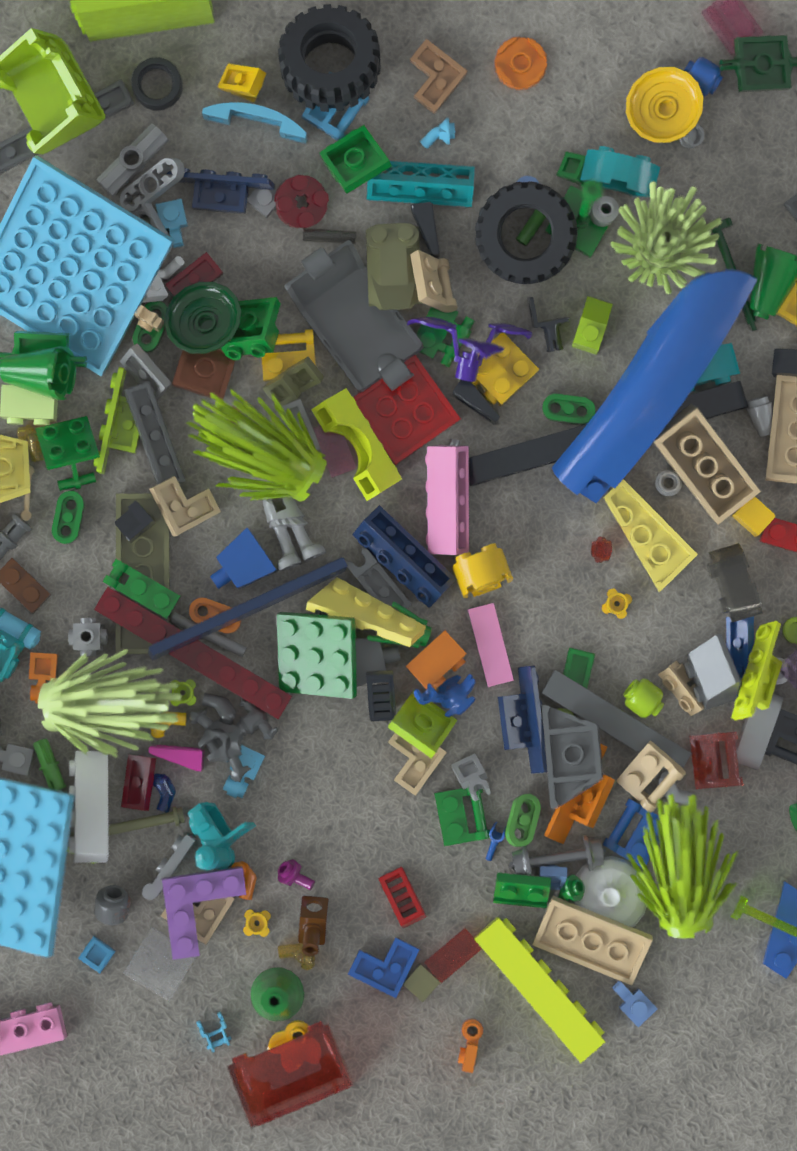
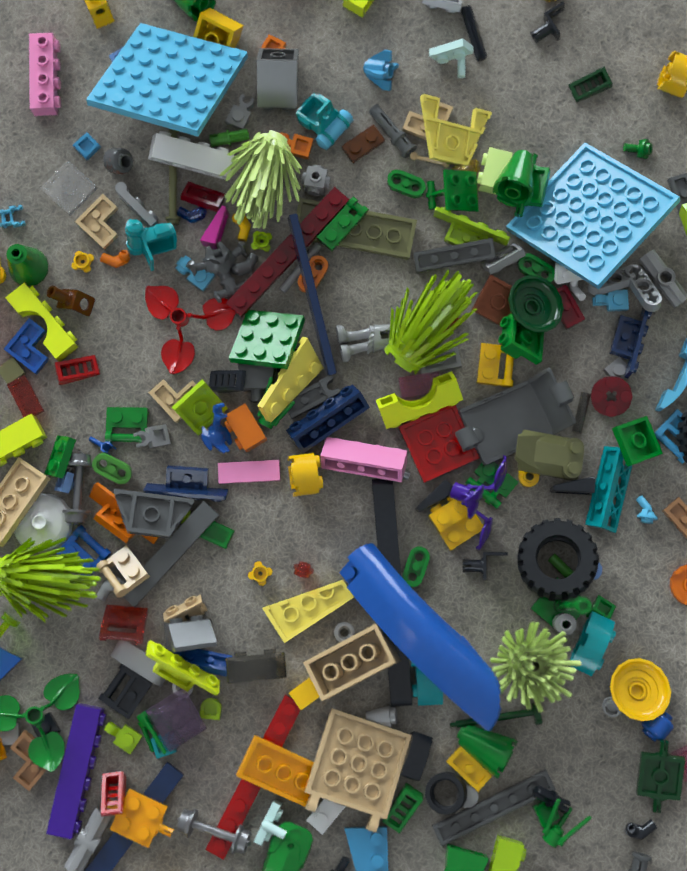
camera: 100 degrees right, 5 degrees down
(134, 522) = (393, 228): black panel -> none
(148, 320) = (541, 264): tan plate -> none
(180, 512) = (394, 261): tan plate -> none
(183, 891) = (114, 210): medium lavender plate -> none
(242, 562) = (348, 301): blue torso -> none
(289, 873) = (112, 291): magenta plate -> none
(293, 806) = (162, 302): none -> red plant
(294, 381) = (475, 363): olive slope -> none
(295, 951) = (56, 281): clear yellow arm -> none
(327, 983) = (57, 341): none -> neon yellow arch
(433, 281) = (532, 476): tan plate -> none
(573, 889) = (51, 494): green plate -> none
(592, 325) = (477, 598): lime slope -> none
(643, 698) = (183, 578): lime head -> none

